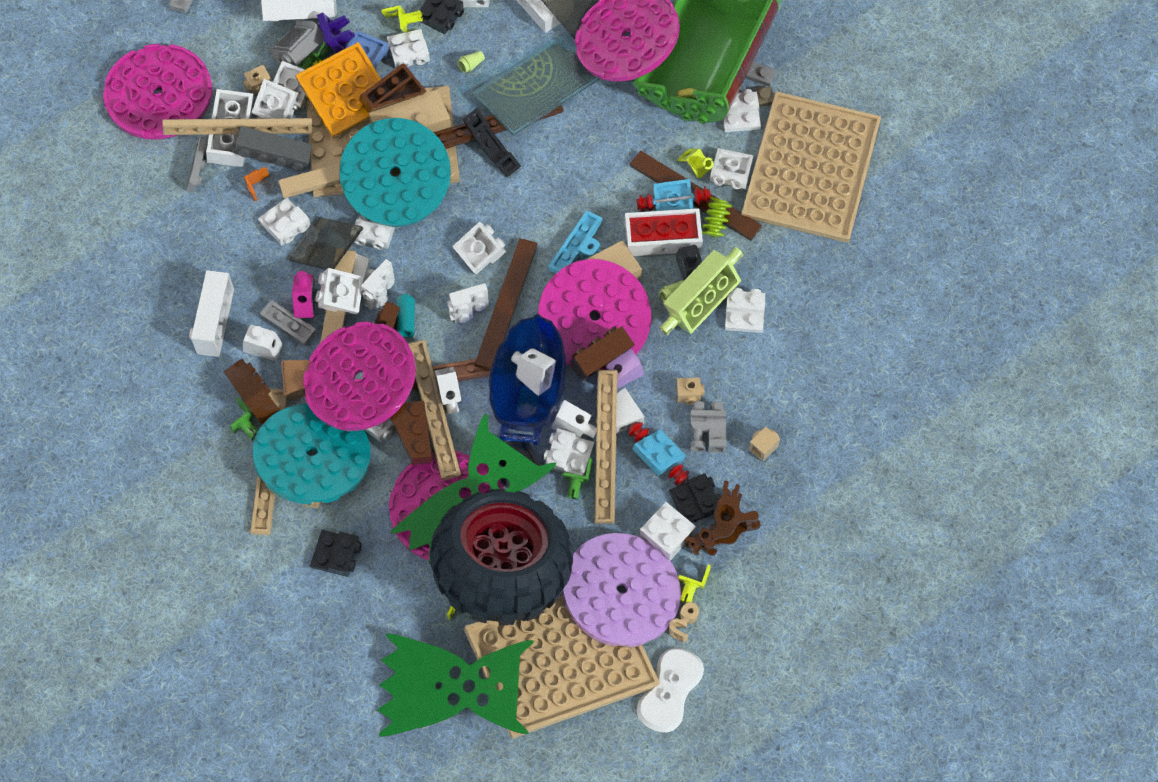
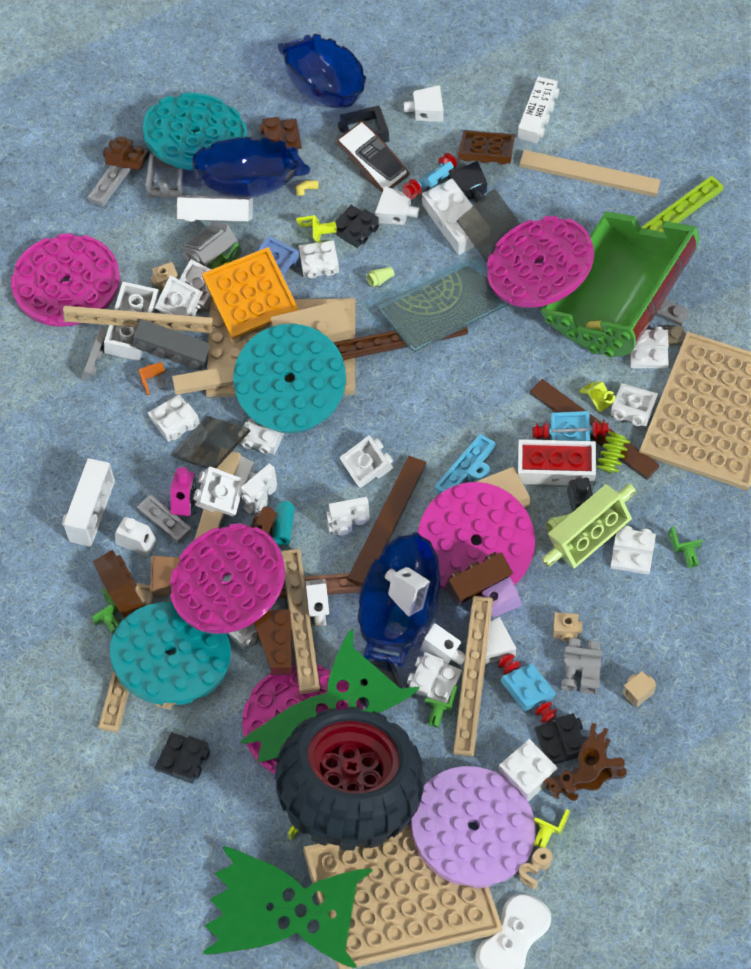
camera: 10 degrees right, 5 degrees down
(332, 31) = (245, 236): dark purple plate -> none
(392, 89) = (295, 296): reddish brown wedge -> none
(490, 143) = (389, 358): black slope -> none
(796, 304) = (687, 548): none -> bright green bracket

